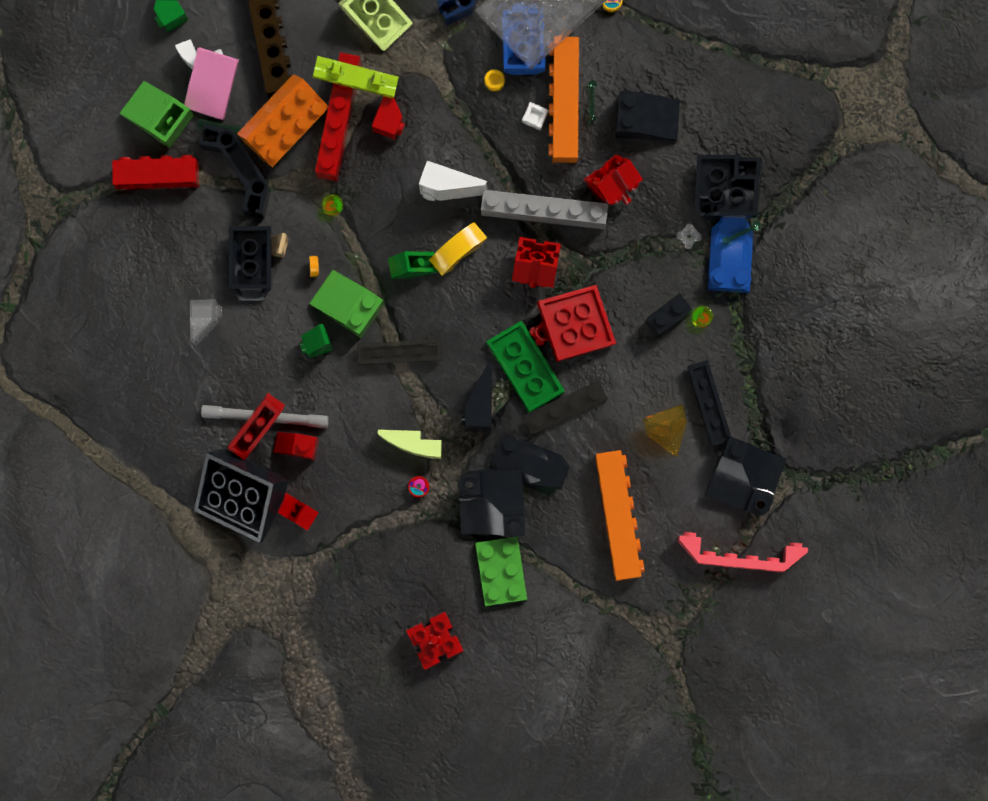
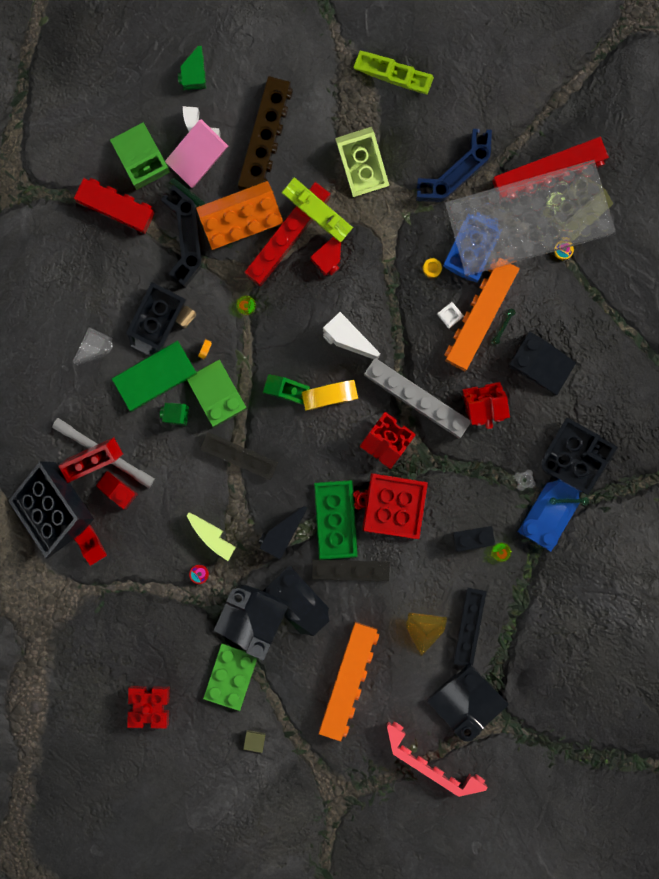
camera: 20 degrees right, 5 degrees up
(277, 317) = (154, 376): none -> green tile
(557, 622) = (254, 741): none -> olive slope

